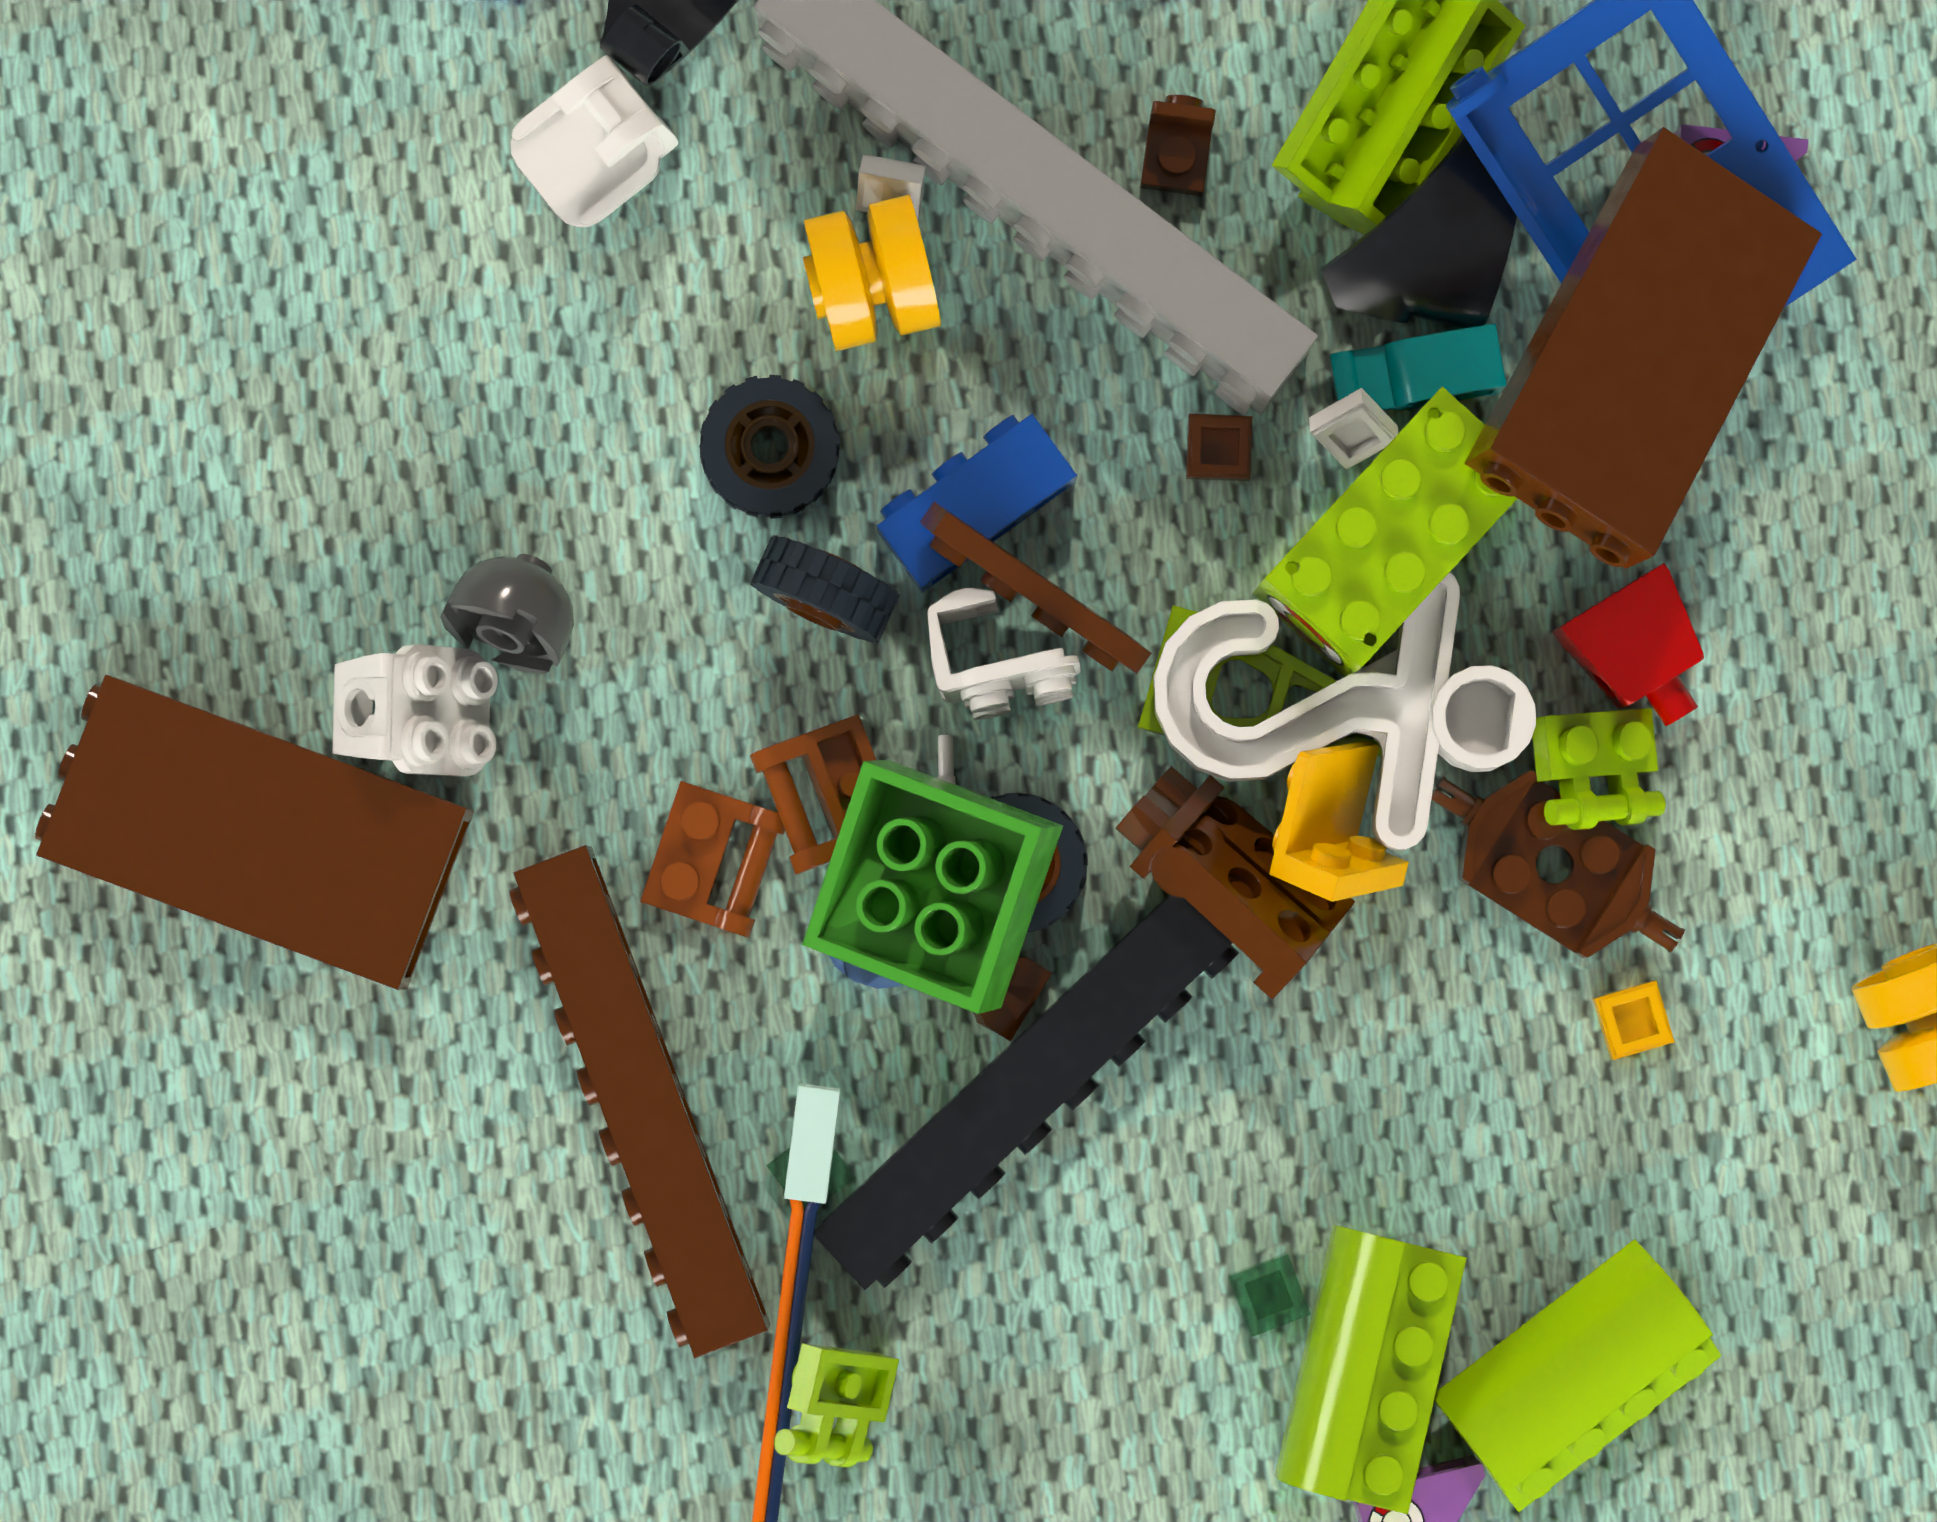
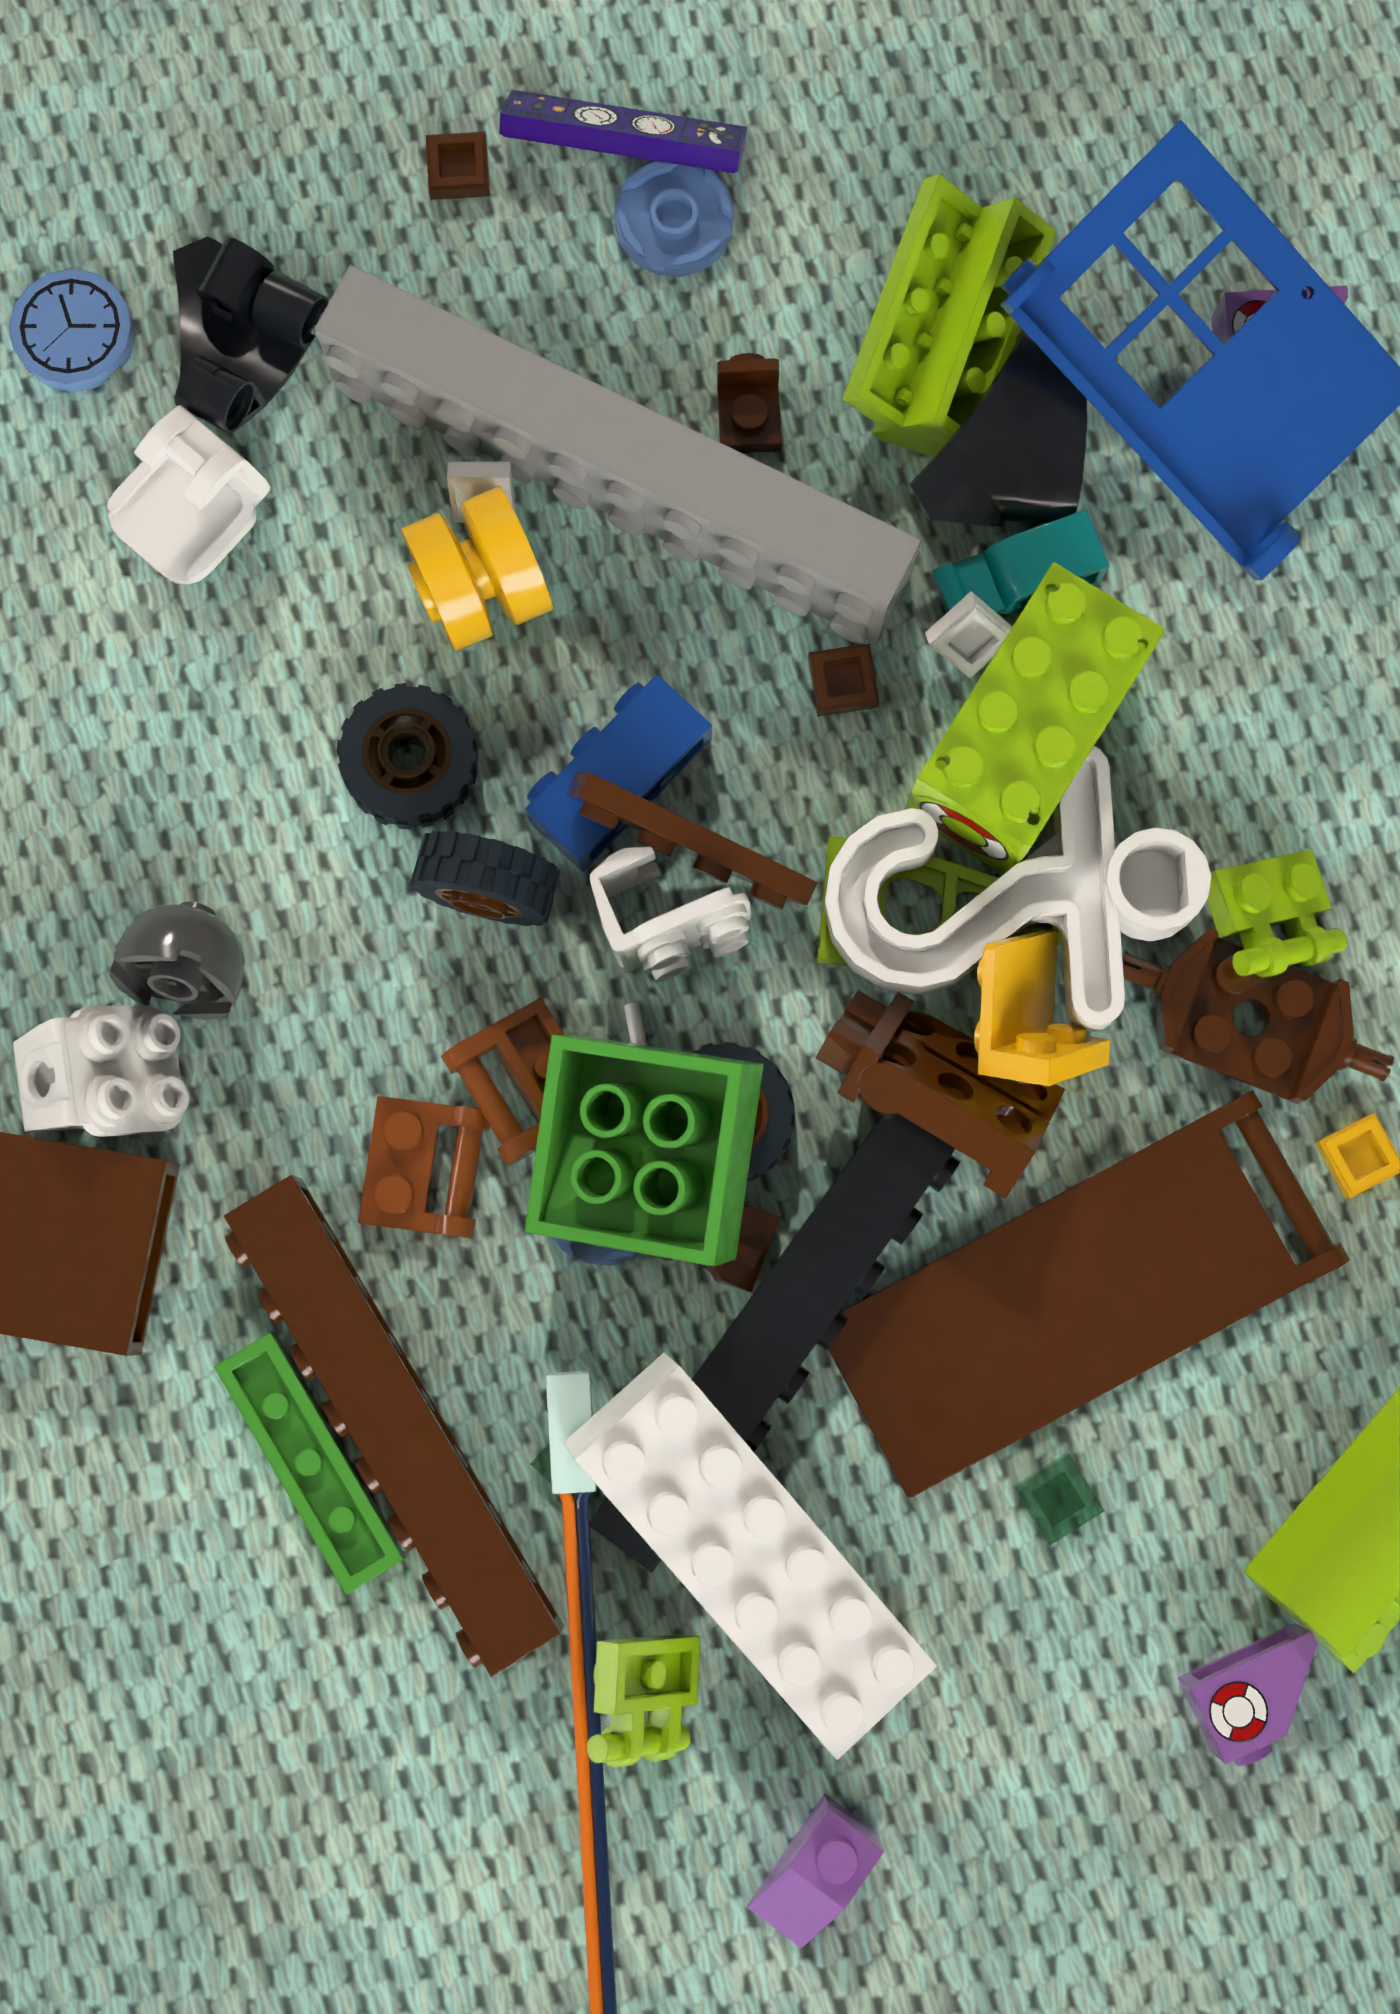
camera: 10 degrees left, 5 degrees down
(554, 1123) = (310, 1462): none -> bright green plate
(960, 1289) = (749, 1554): none -> white brick
(1326, 1104) = (1075, 1297): none -> reddish brown flag
(1370, 1369) = (1177, 1558): lime brick -> none
(1638, 645) = (1286, 790): red torso -> none
(1643, 350) = (1242, 495): reddish brown brick -> none

